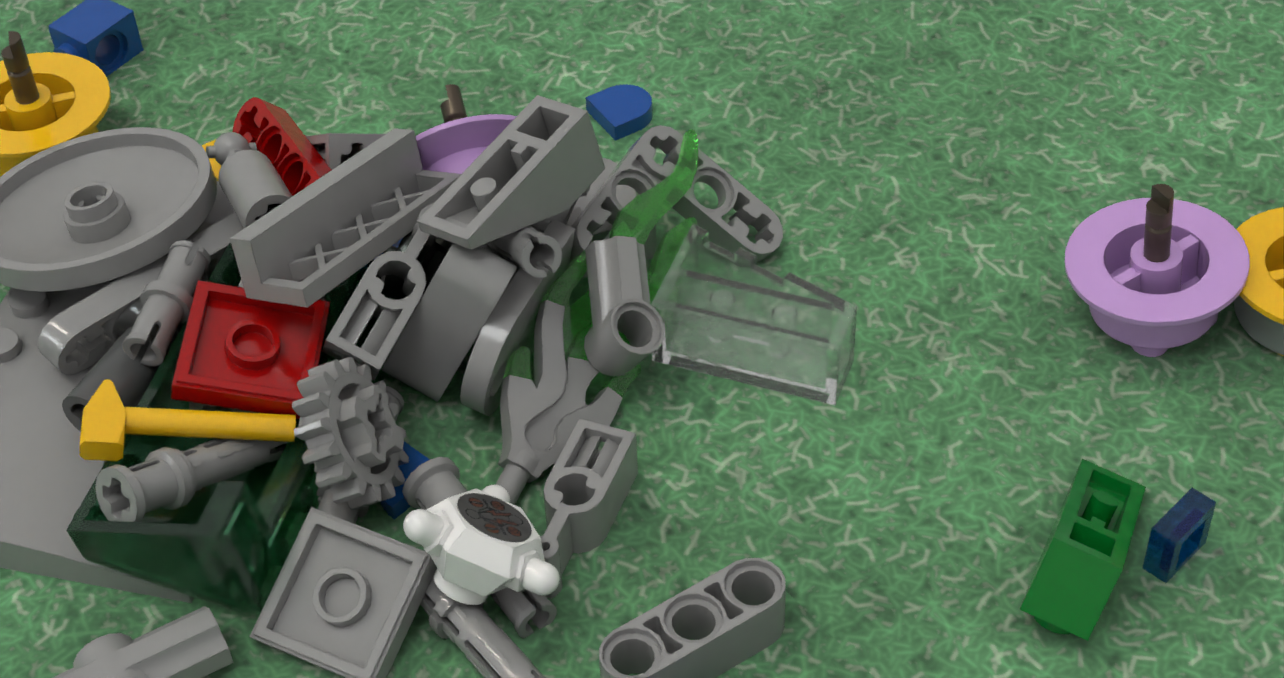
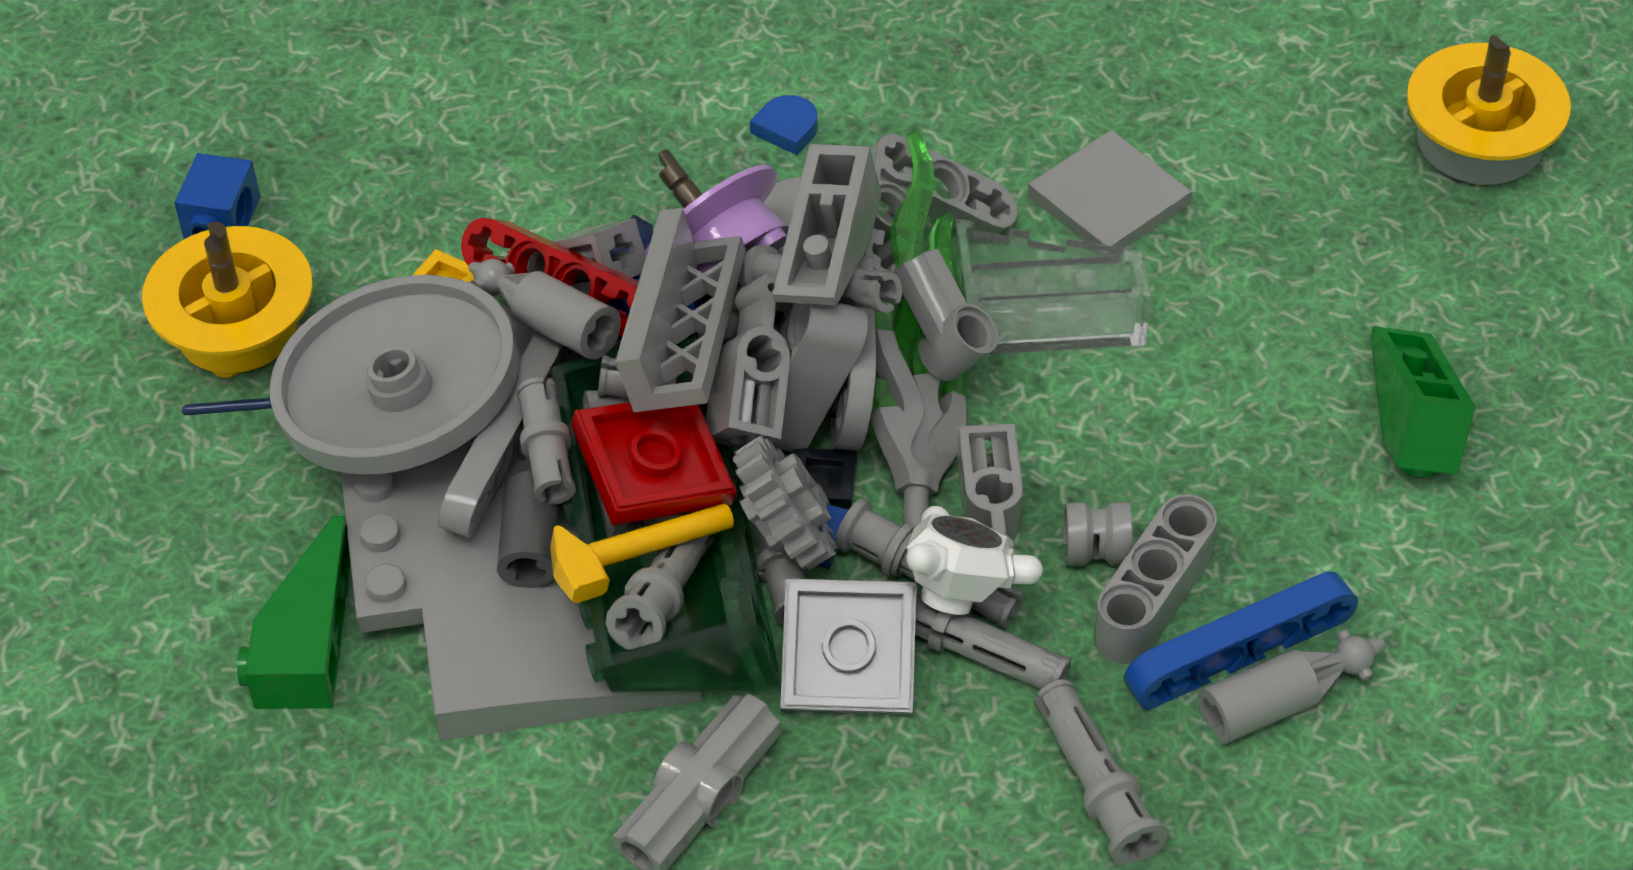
camera: 25 degrees left, 5 degrees up
(444, 428) = (833, 472): none -> black tile
(658, 568) = (1097, 533): none -> light grey wheel
(886, 254) = (1109, 192): none -> light grey tile
(1156, 269) = (1359, 140): lavender piece -> none
(1178, 535) = (1484, 363): clear blue tile -> none

